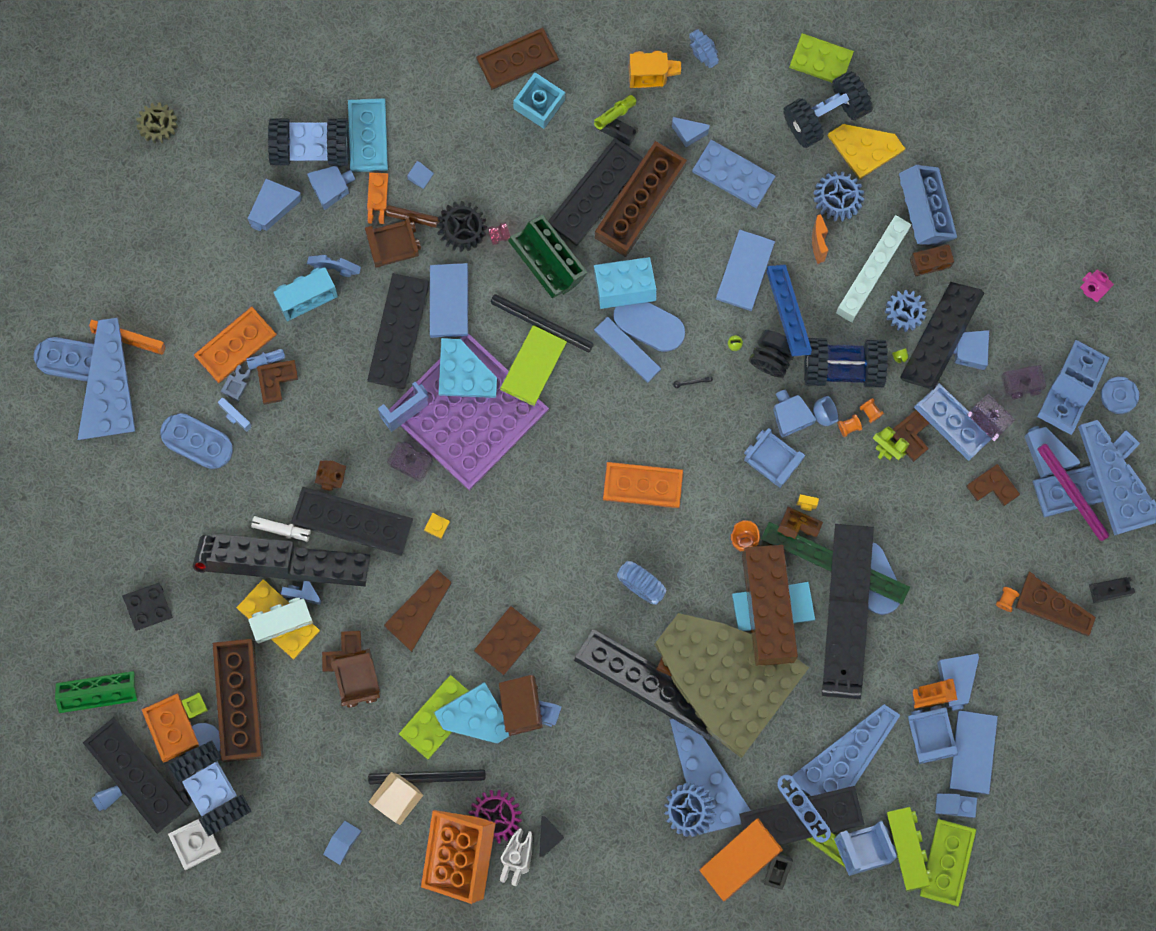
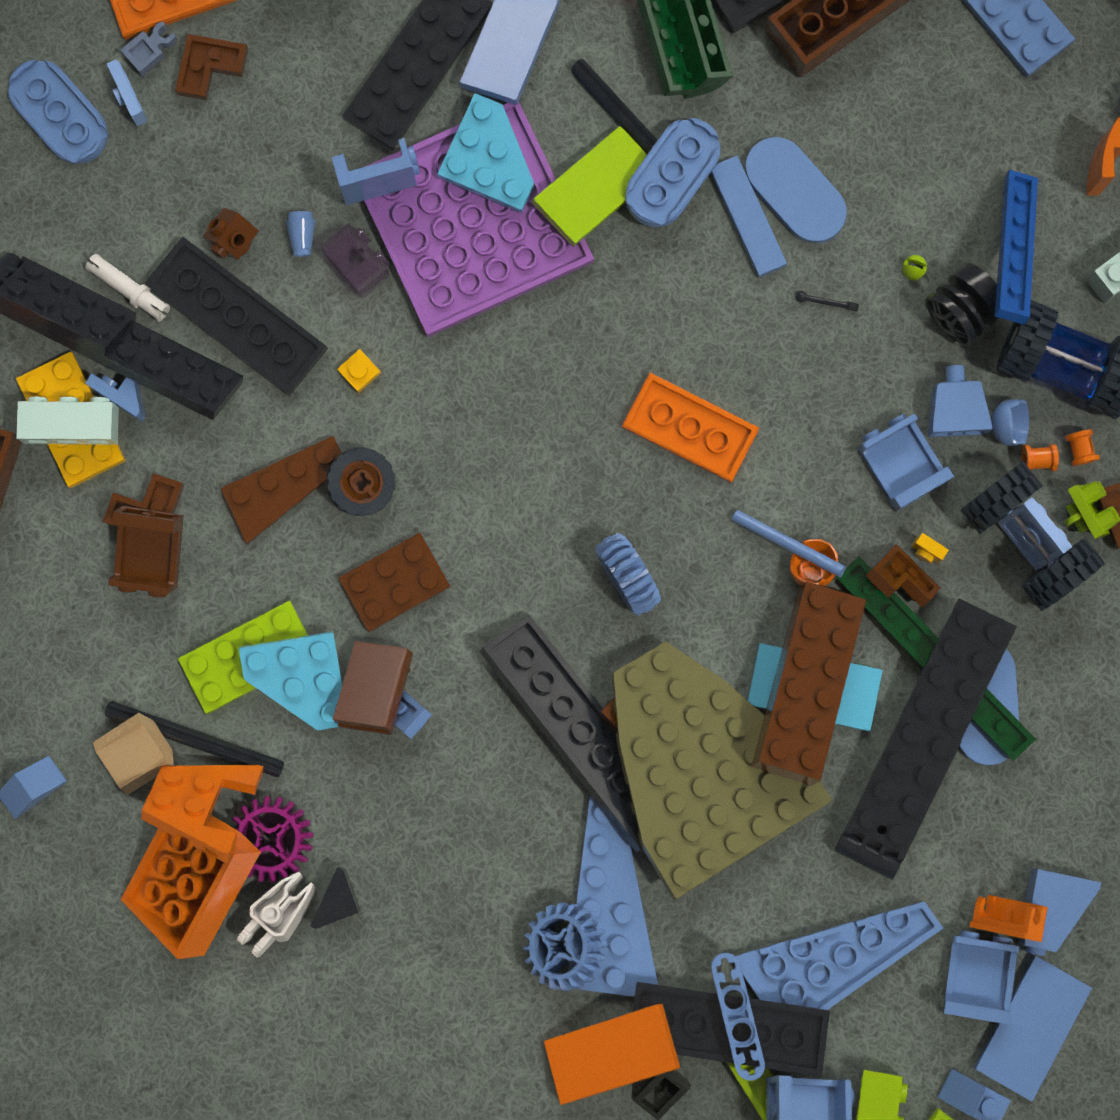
camera: 25 degrees right, 5 degrees up
(265, 359) = (205, 27): medium blue axle -> none
(370, 458) = (301, 232): none -> medium blue cone
(440, 810) = (186, 797): none -> orange wing
(464, 589) = (360, 481): none -> black wheel
(574, 341) = (672, 172): none -> medium blue tile
(625, 282) = (783, 113): medium azure brick -> none
(726, 529) = (789, 543): none -> medium blue bar
(745, 270) = (973, 163): medium blue tile -> none
(863, 471) = (1034, 536): none -> black plate

